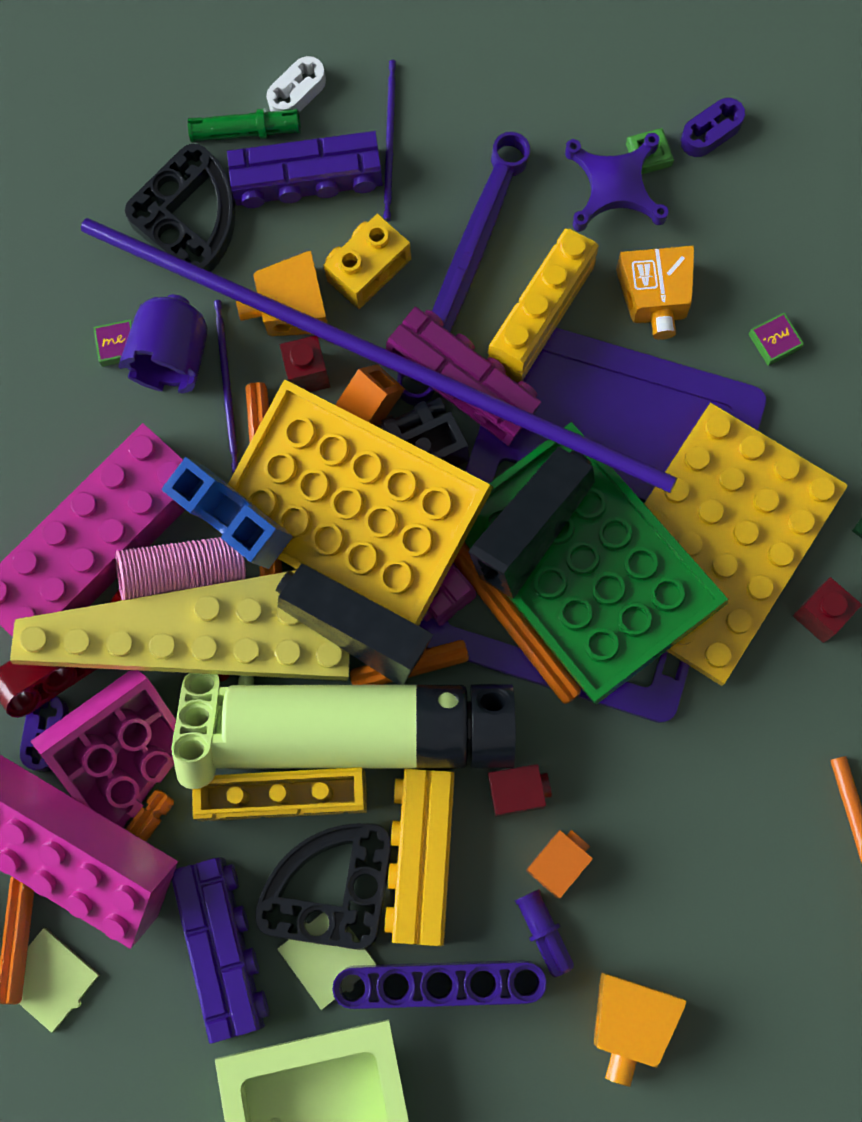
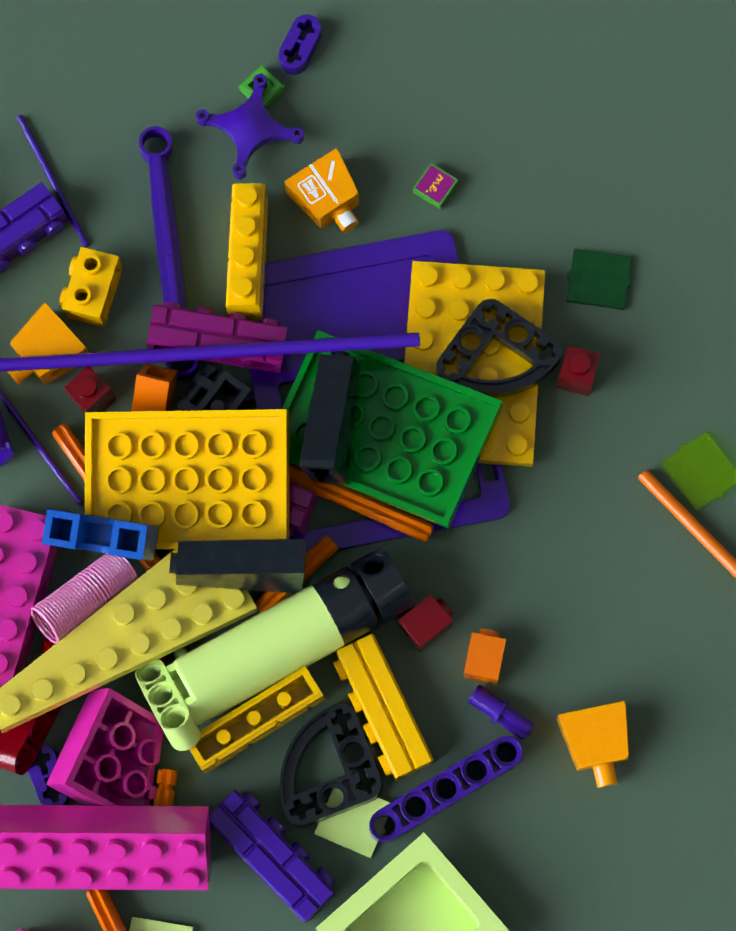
camera: 30 degrees left, 0 degrees up
(748, 518) = (486, 333): none -> black beam

